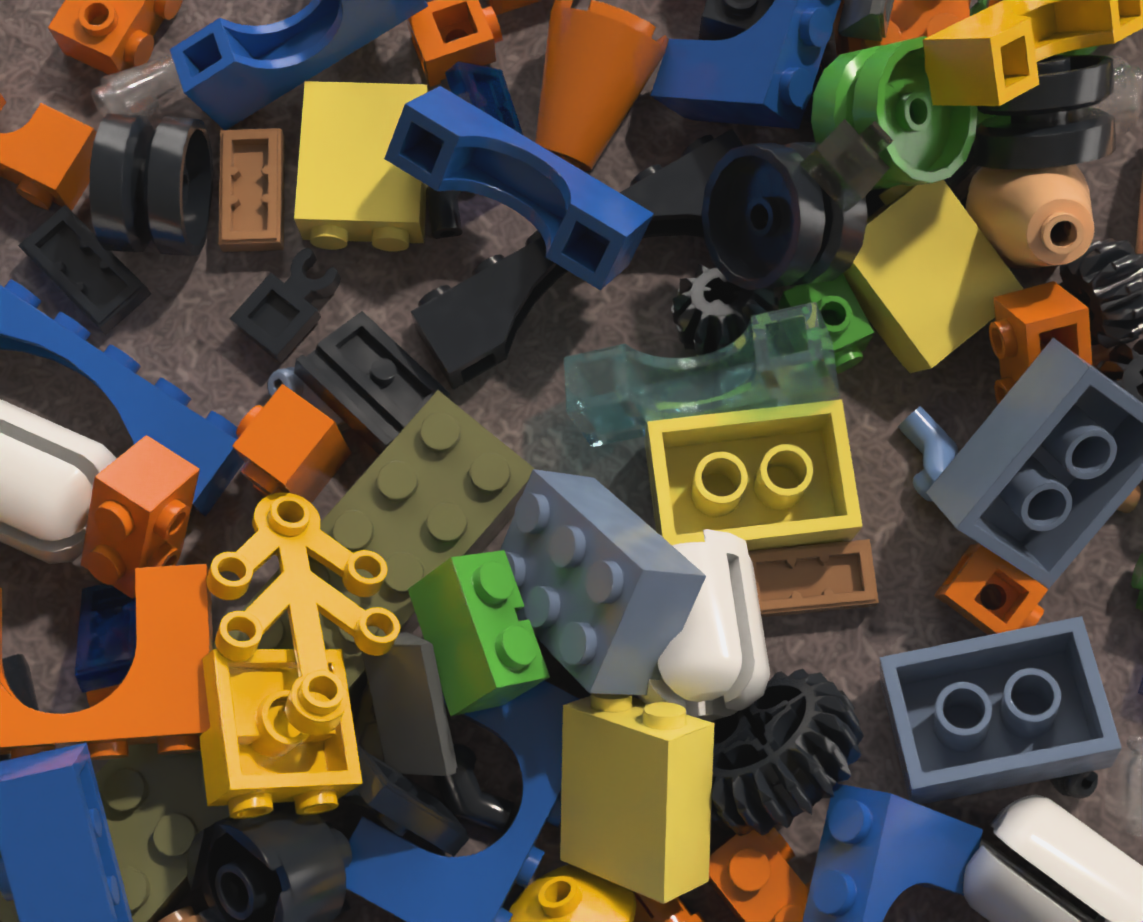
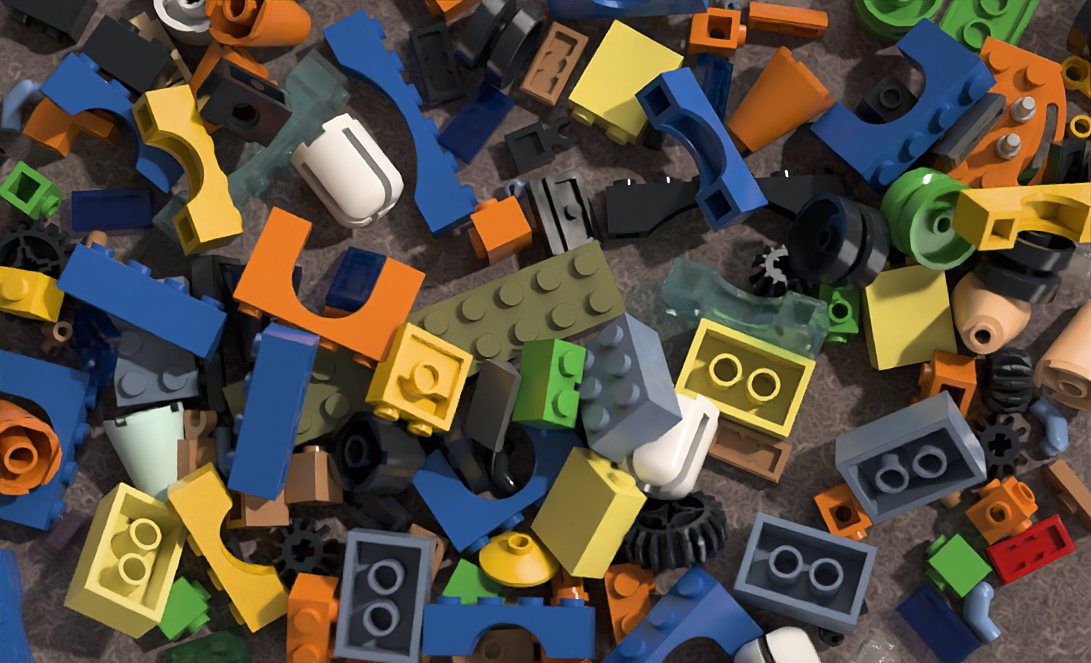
camera: 30 degrees right, 5 degrees up
(138, 514) = (400, 225): orange brick -> none
(181, 322) = (476, 122): none -> clear blue plate
(303, 597) = (466, 318): yellow plant -> none
(848, 162) = (884, 235): clear smoke tile -> none
(933, 443) = (859, 410): medium blue arm -> none

